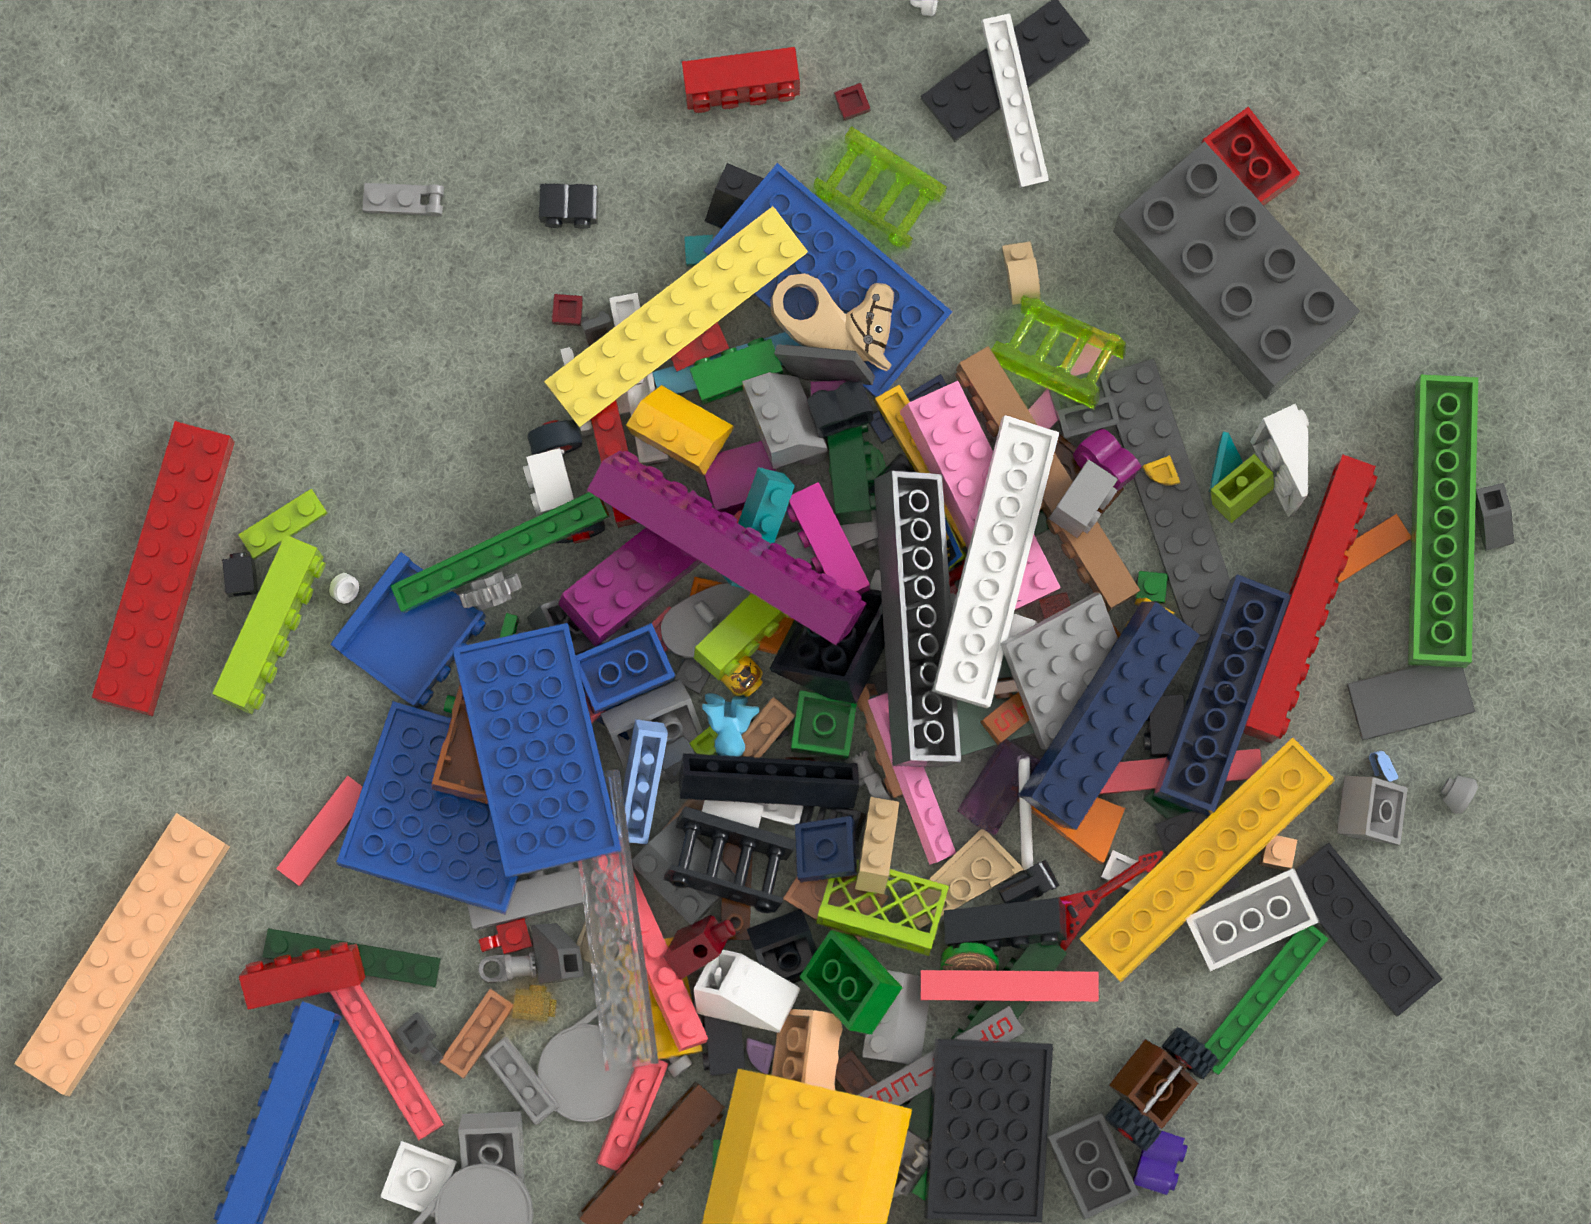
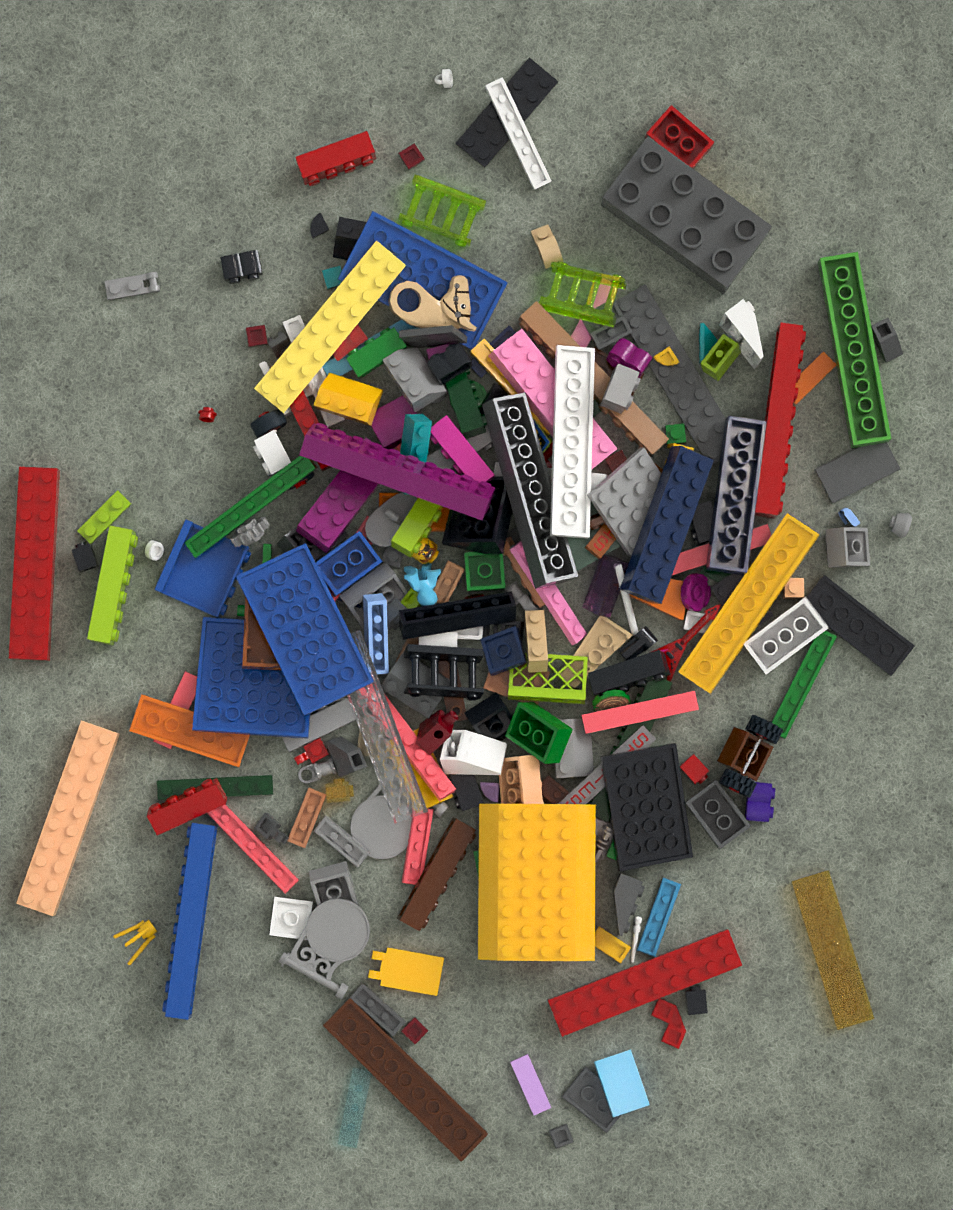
camera: 15 degrees left, 5 degrees up
(198, 1148) = (146, 930): none -> yellow plant
(311, 853) = (174, 726): none -> orange plate
(468, 408) = (207, 414): none -> red plate
(693, 172) = (318, 226): none -> black tile
(1072, 1091) = (694, 769): none -> red brick
(1131, 825) = (695, 592): none -> magenta tile

